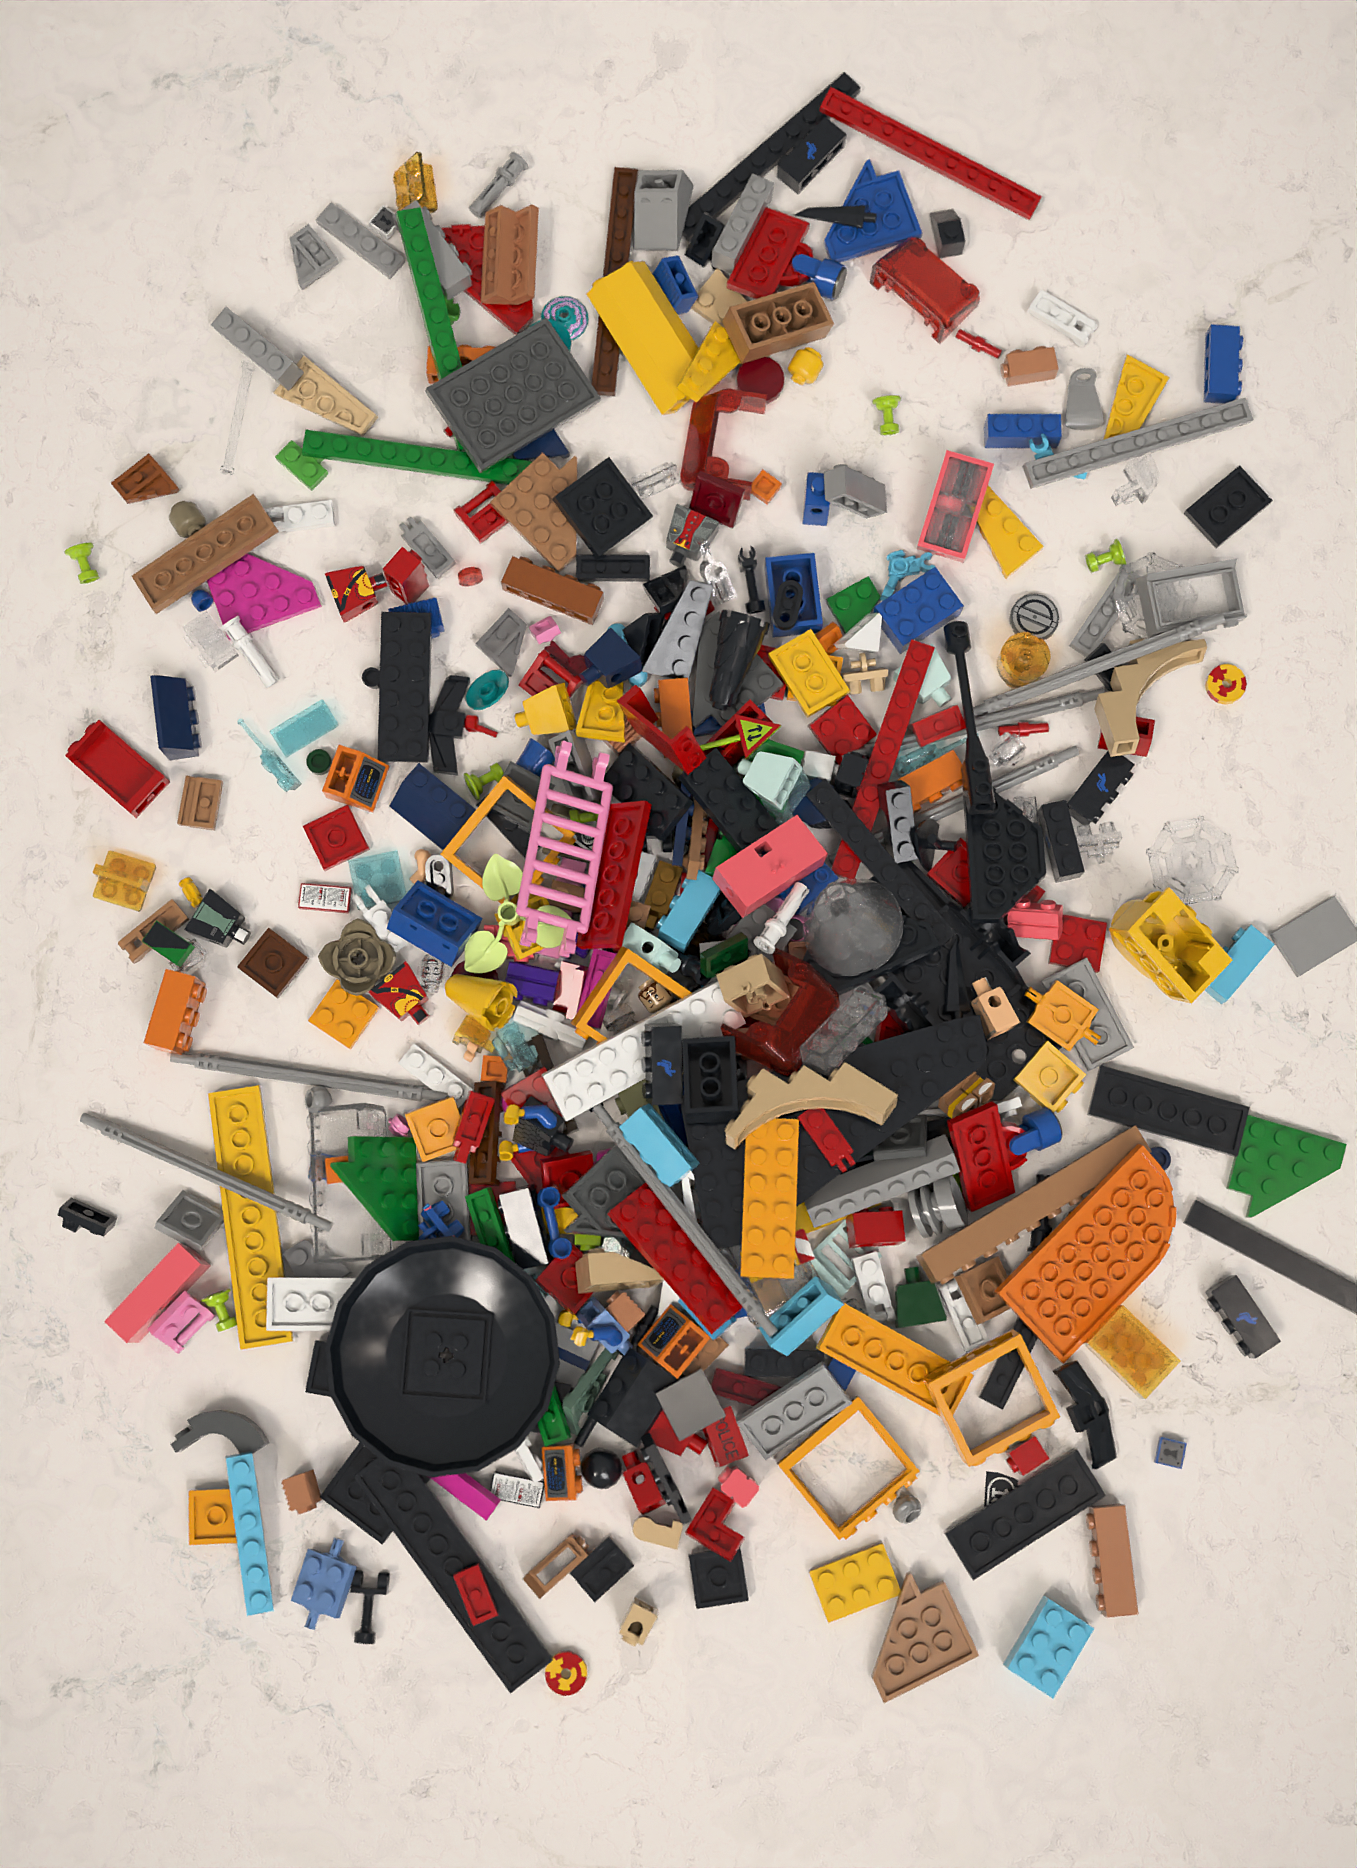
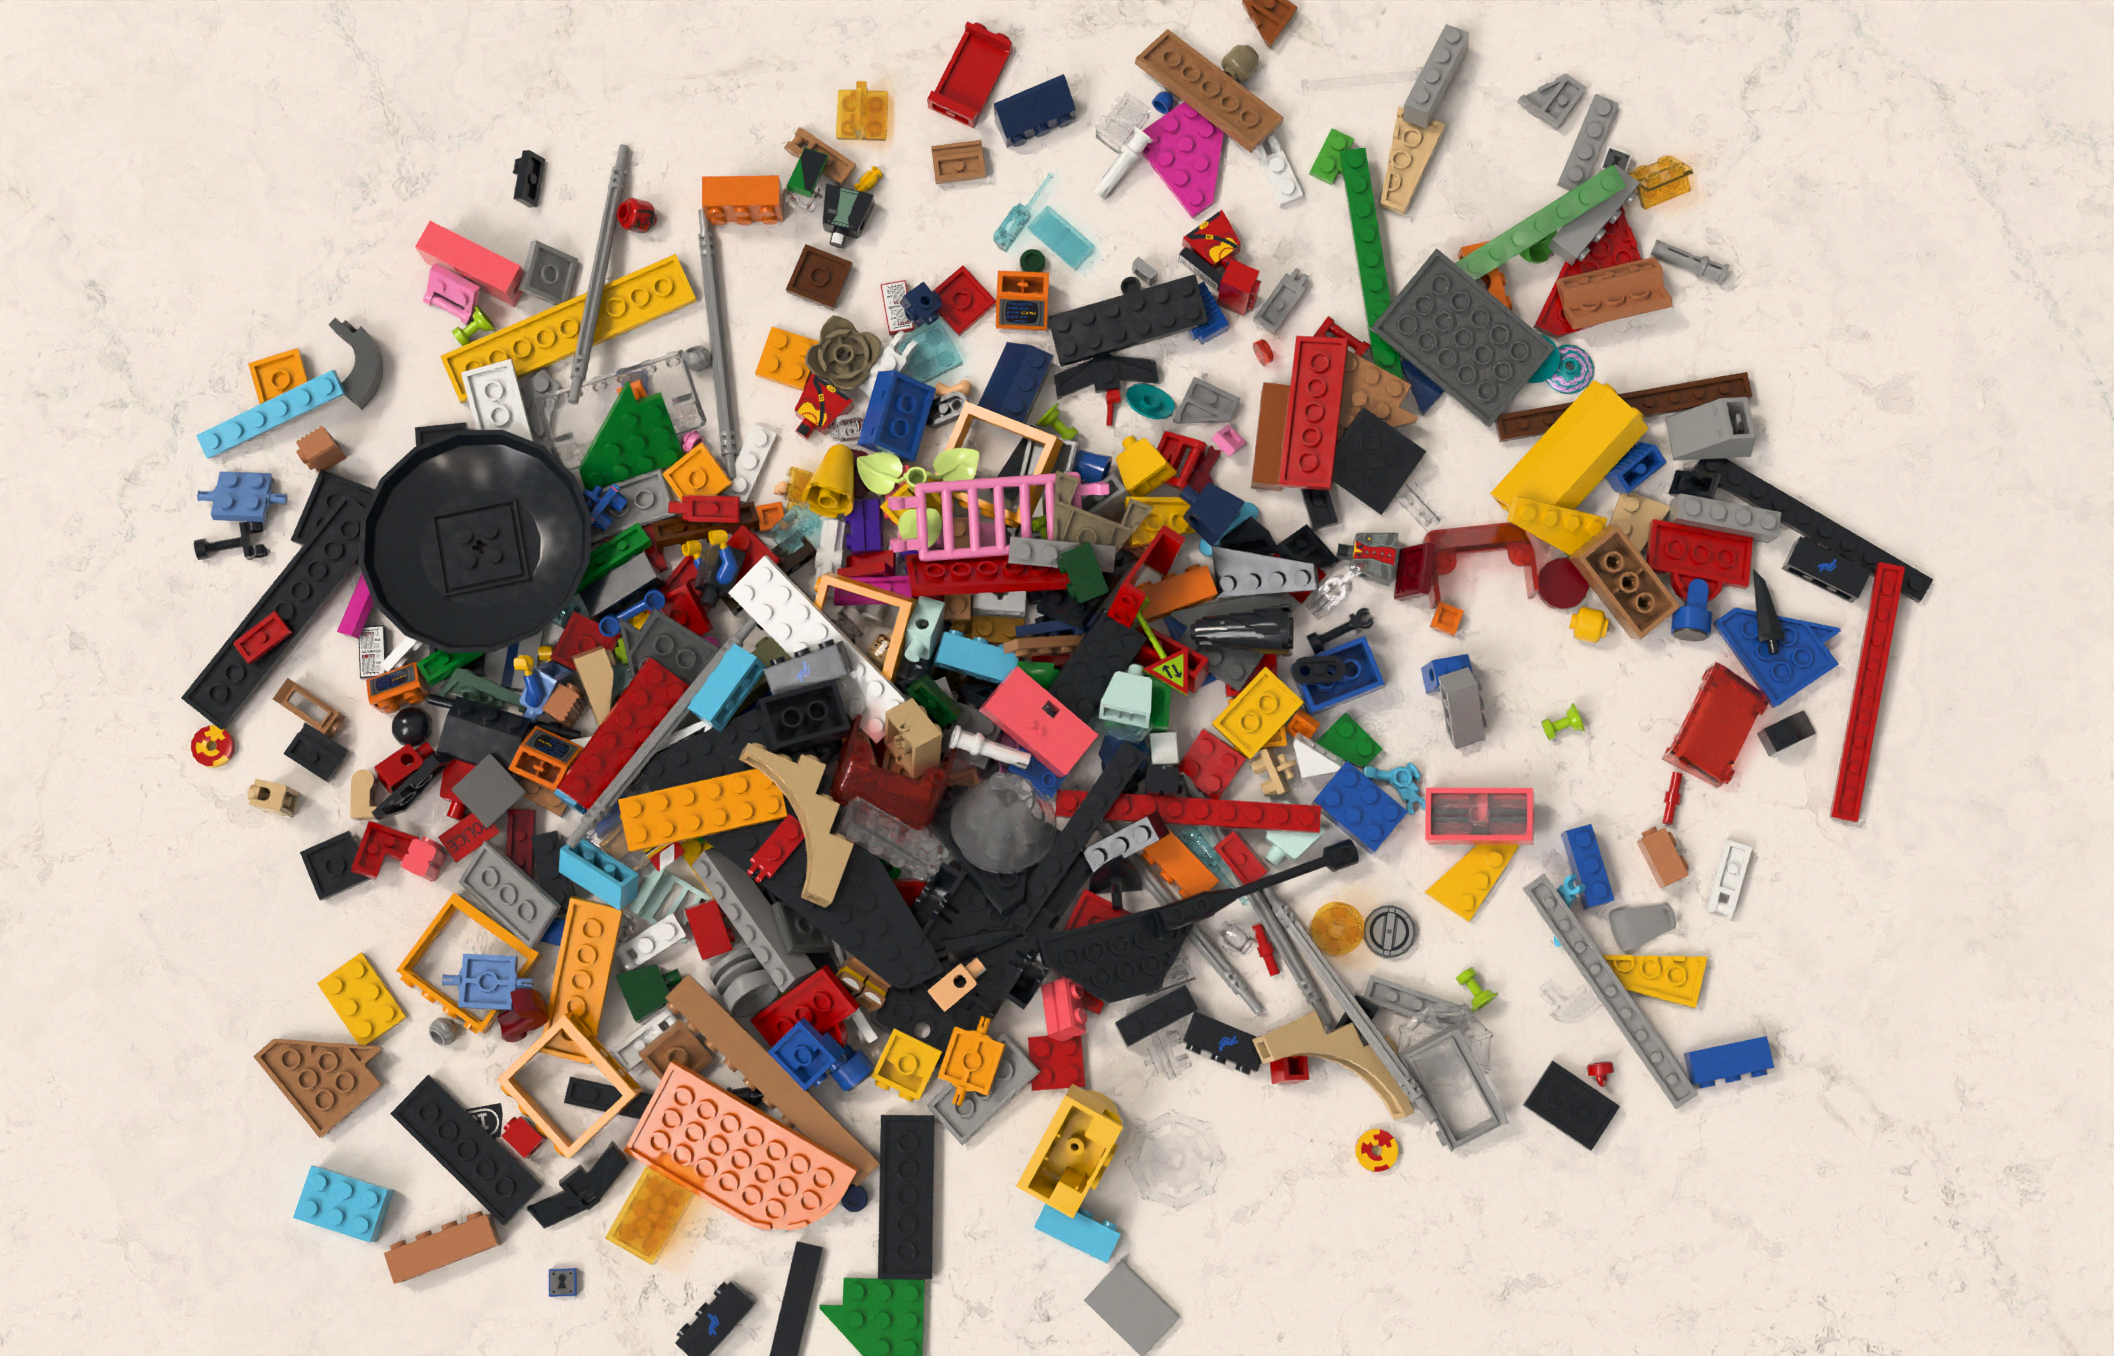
camera: 75 degrees right, 0 degrees up
(158, 1120) = (636, 215): none -> red head
(332, 871) = (921, 305): none -> dark blue brick
(360, 661) = (1144, 271): none -> light grey tile
(373, 609) = (1200, 268): none -> black tile
(545, 543) = (1313, 413): none -> red plate
(604, 776) = (1080, 525): none -> dark tan wing
(617, 801) = (1045, 552): none -> light grey plate
(643, 784) = (1082, 572): none -> dark green brick
(875, 1451) = (487, 981): none -> medium blue plate
(914, 1421) = (528, 1014): none -> dark red animal
(1023, 1162) = (807, 1054): none -> blue plate
(1203, 472) = (1600, 1070): none -> red tile

